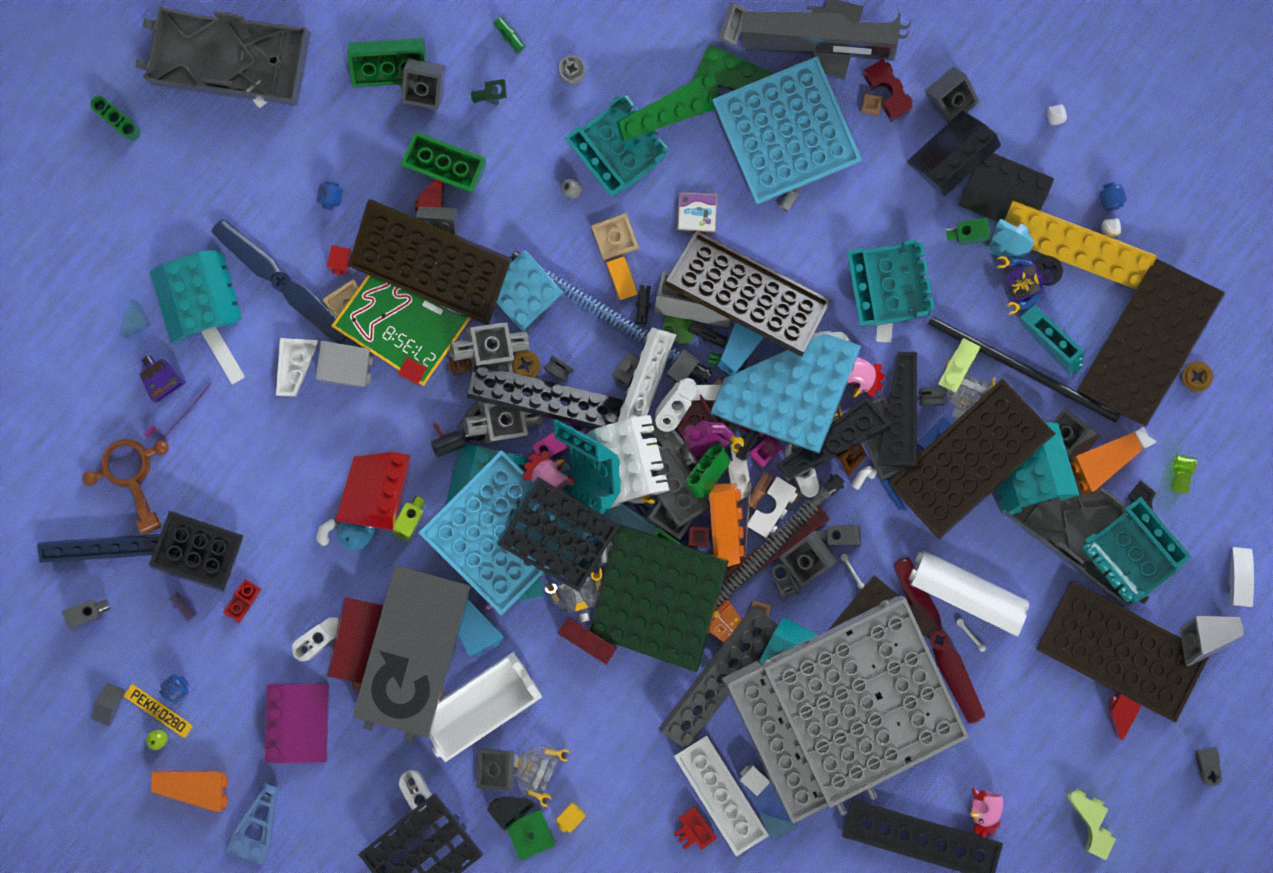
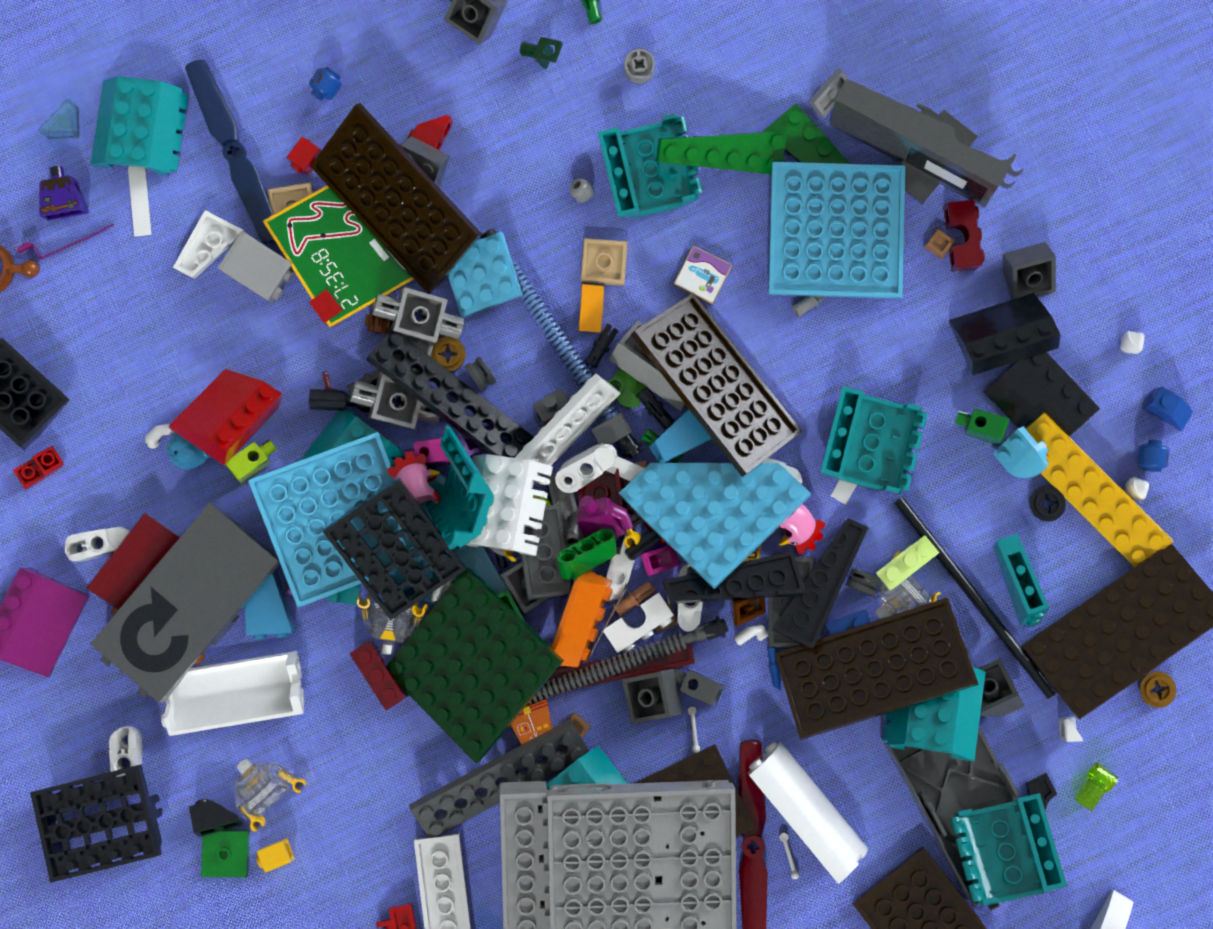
camera: 20 degrees right, 0 degrees up
(444, 162) = (459, 102): green slope -> none
(495, 769) = (218, 767): dark grey plate -> none
(698, 537) = (546, 619): red brick -> none
(753, 779) = (487, 904): white brick -> none
(784, 583) = (616, 710): dark grey piece -> none
(1024, 282) = (1017, 505): torso -> none
(1101, 463) = (1015, 736): orange slope -> none
(1108, 153) = (1168, 407): none -> blue slope

